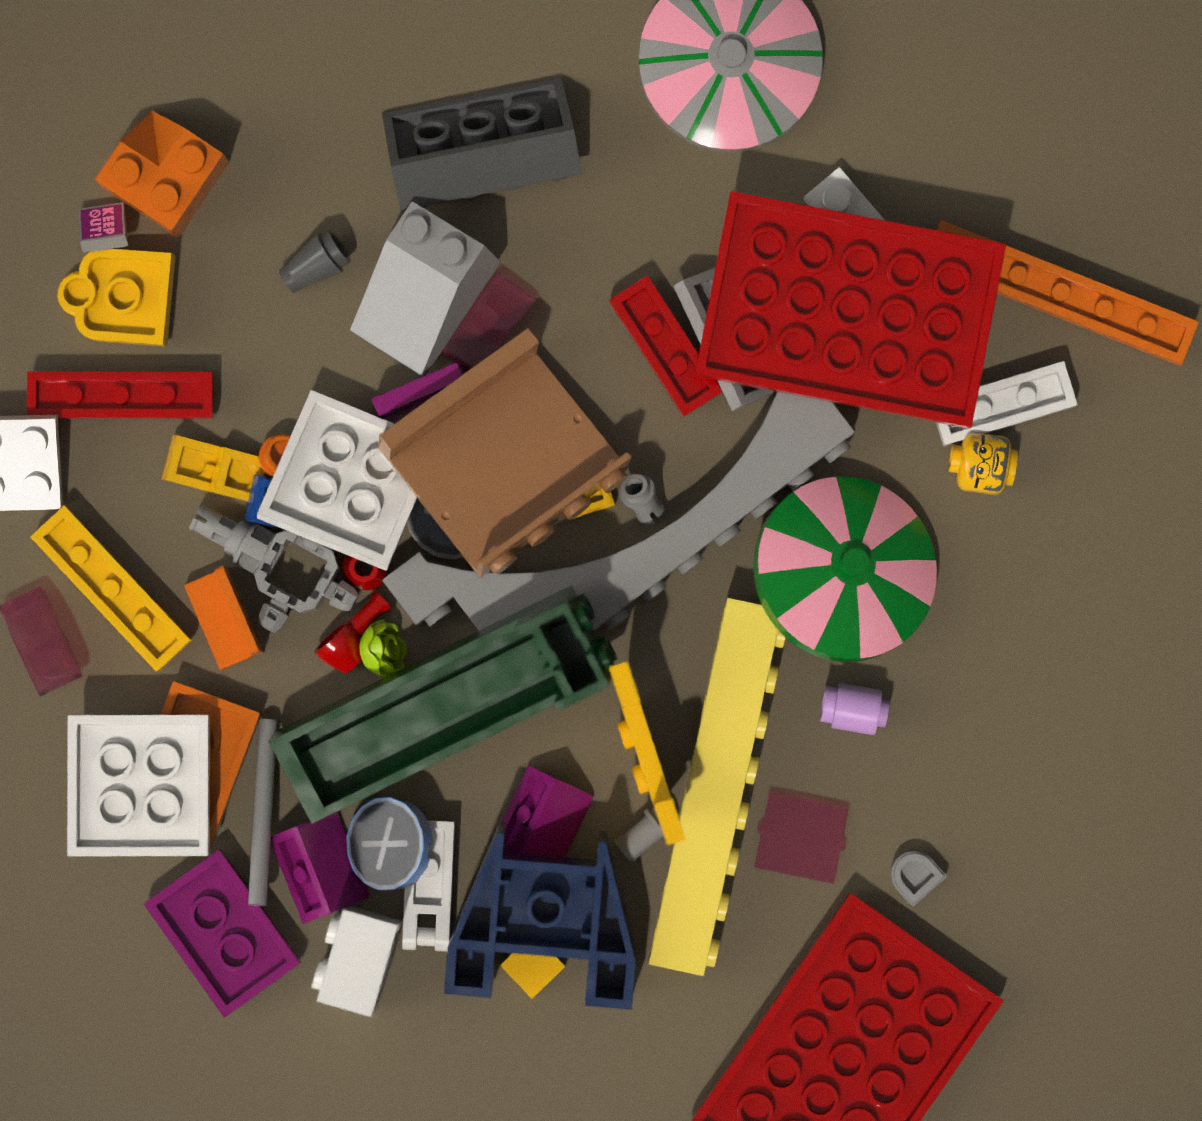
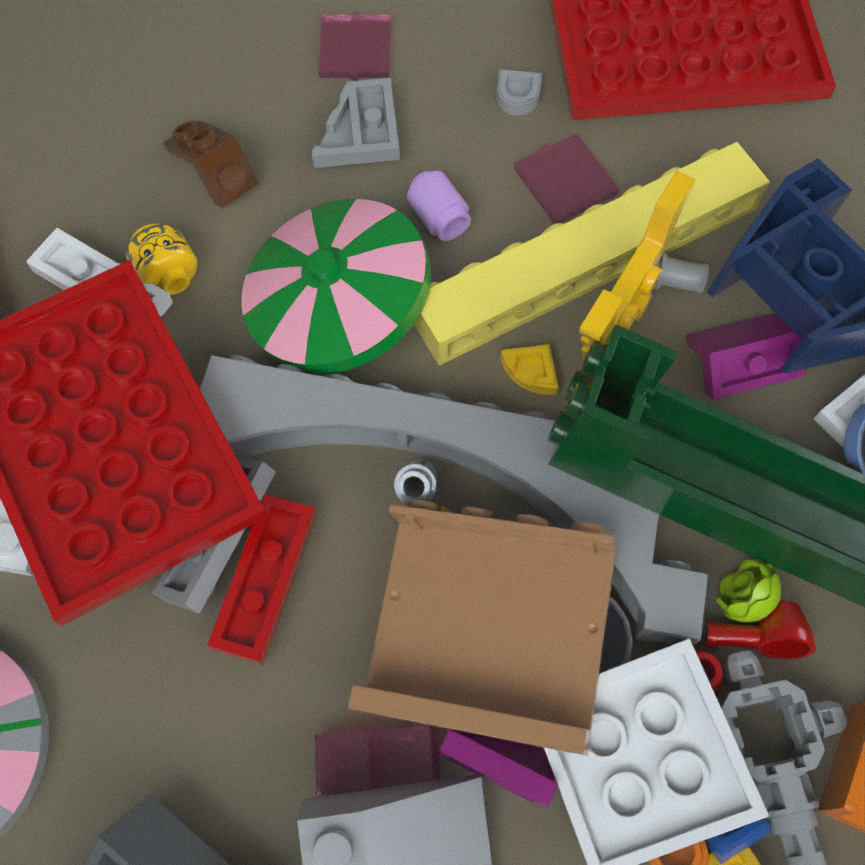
camera: 130 degrees left, 20 degrees down
(663, 660) = (531, 368): none -> yellow tile
(984, 715) = (360, 127): none -> light grey wing
(1053, 570) = (215, 159): none -> reddish brown bracket
(1080, 785) = (355, 46): none -> clear pink piece

